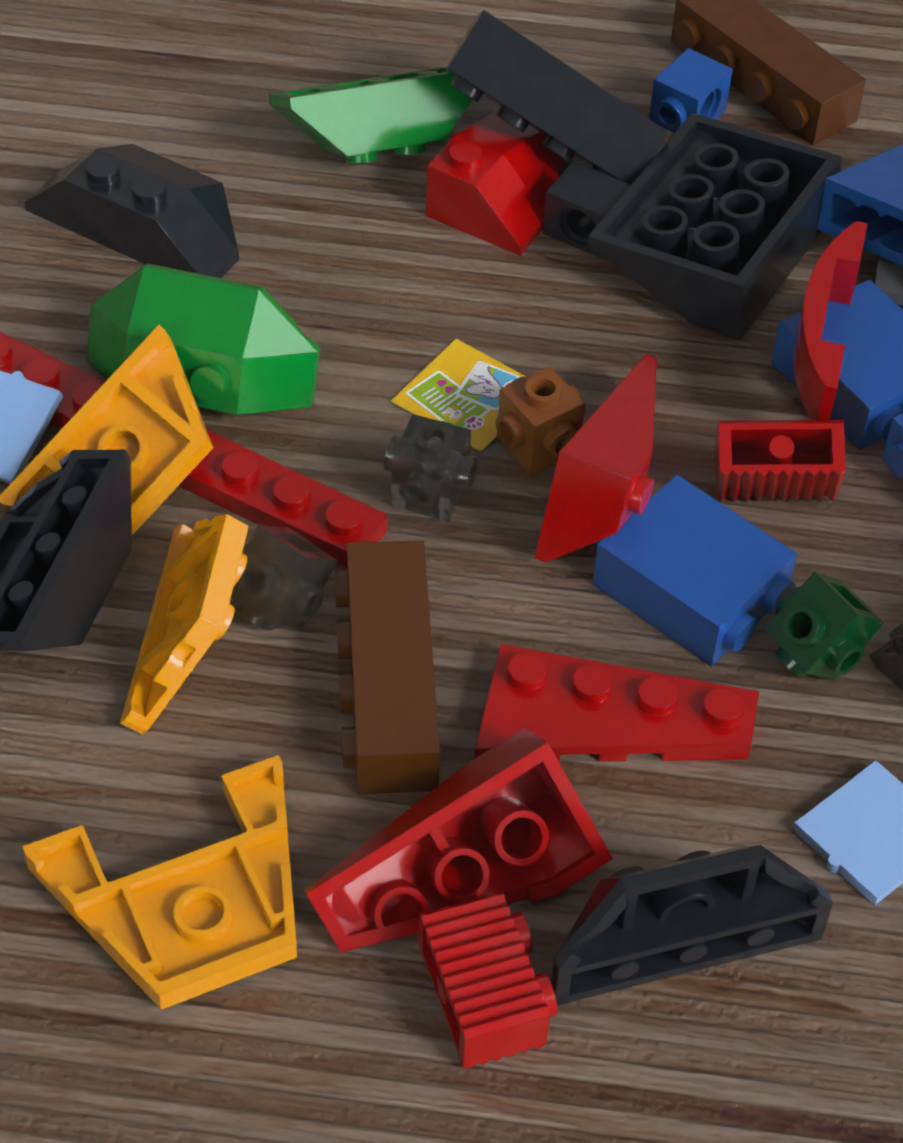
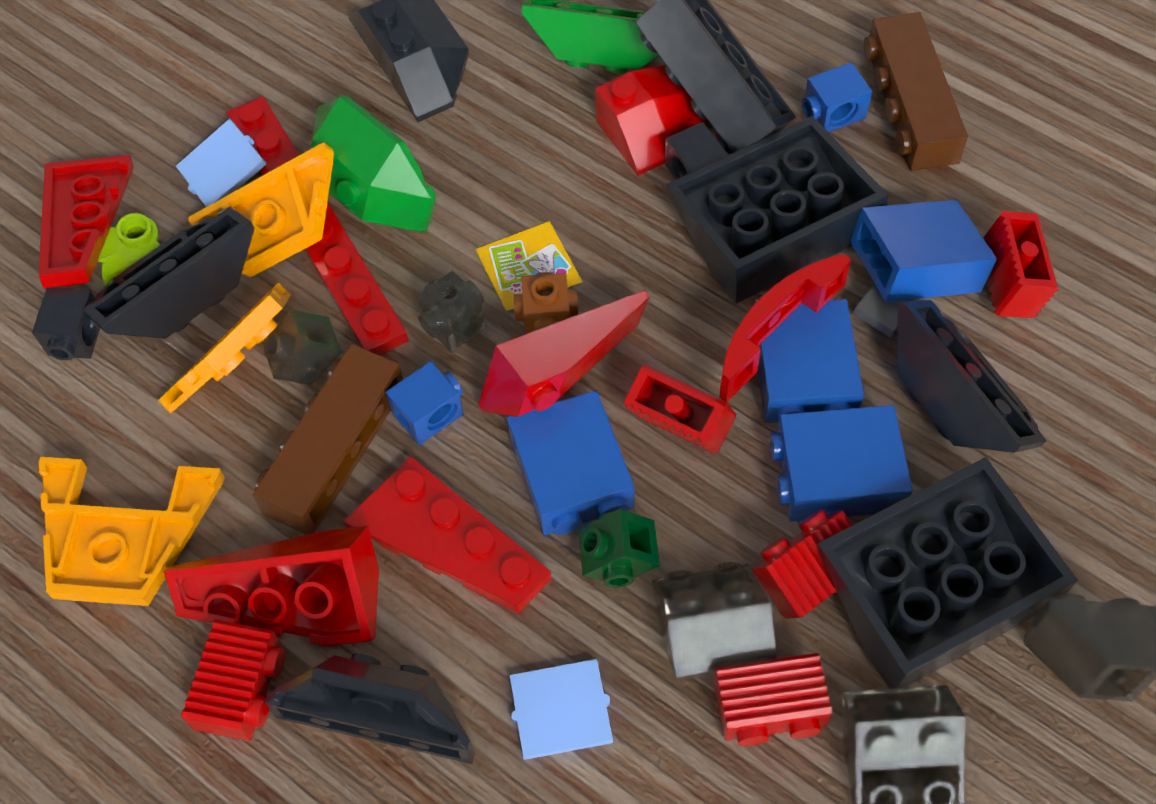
camera: 35 degrees right, 10 degrees up
(474, 578) = (426, 402): none -> blue brick

